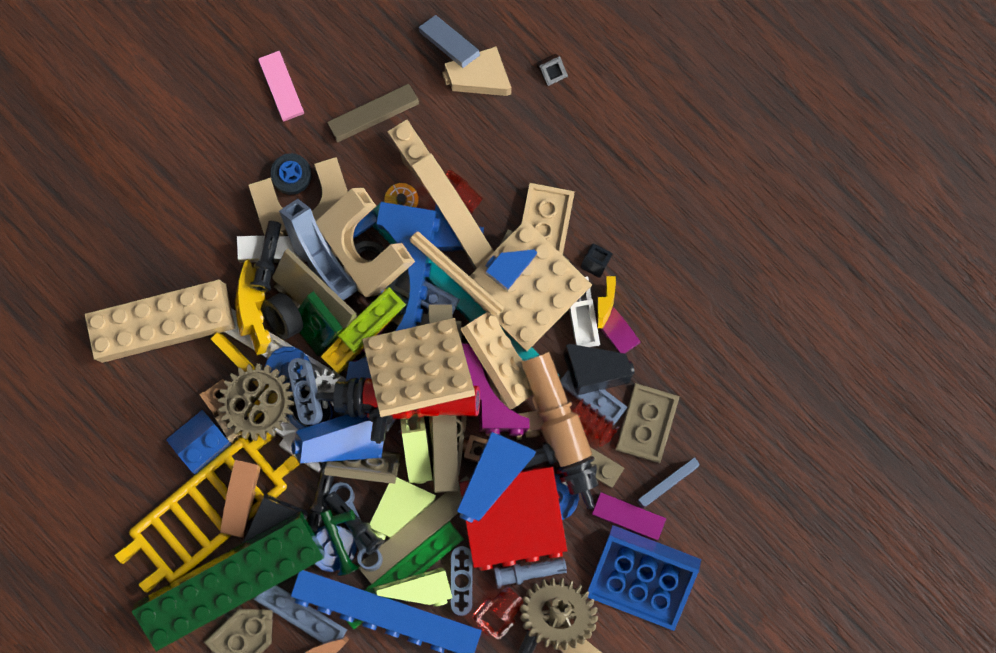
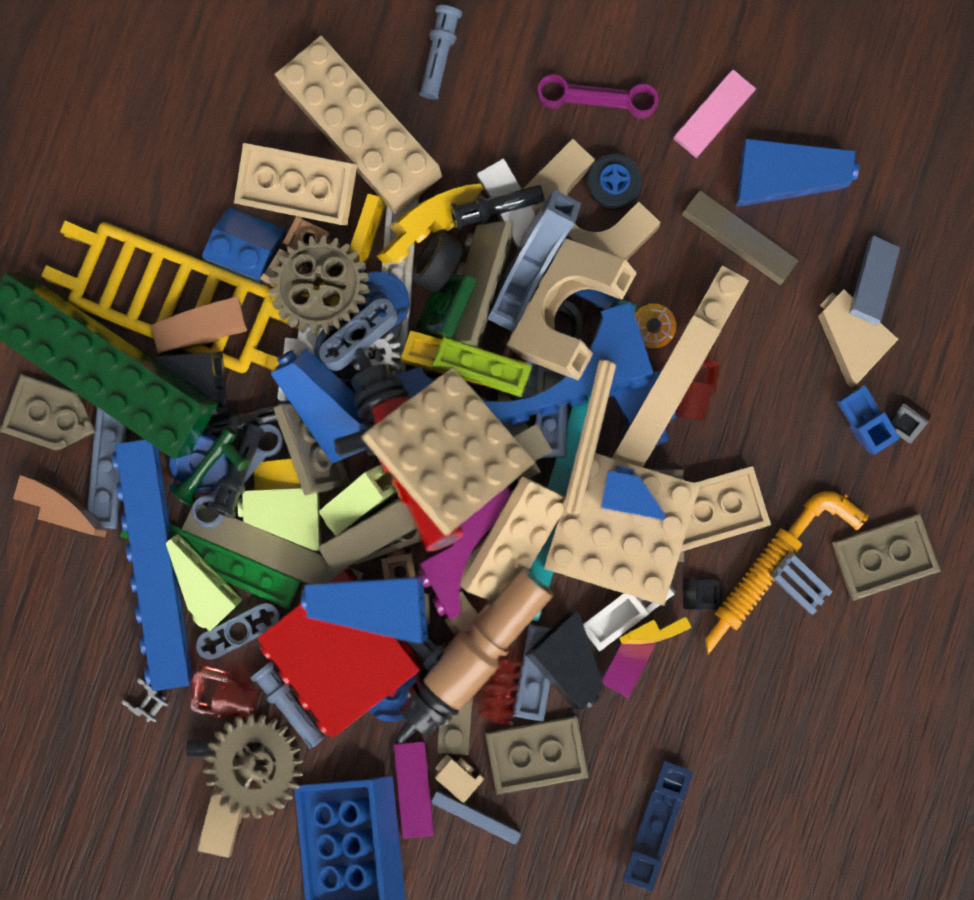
camera: 70 degrees right, 5 degrees up
(129, 234) = (441, 38): none -> sand blue pin
(177, 384) = (295, 184): none -> tan plate
(227, 155) = (597, 96): none -> magenta piece
(345, 59) = (788, 170): none -> blue slope
(370, 498) = (276, 475): none -> yellow slope
(540, 95) = (867, 421): none -> blue brick
(599, 202) = (785, 542): none -> light orange piece
(633, 130) = (885, 557): none -> dark tan tile
(635, 481) = (458, 777): none -> tan brick
(636, 187) = (816, 597): none -> sand blue tile
(733, 367) = (656, 826): none -> dark blue slope

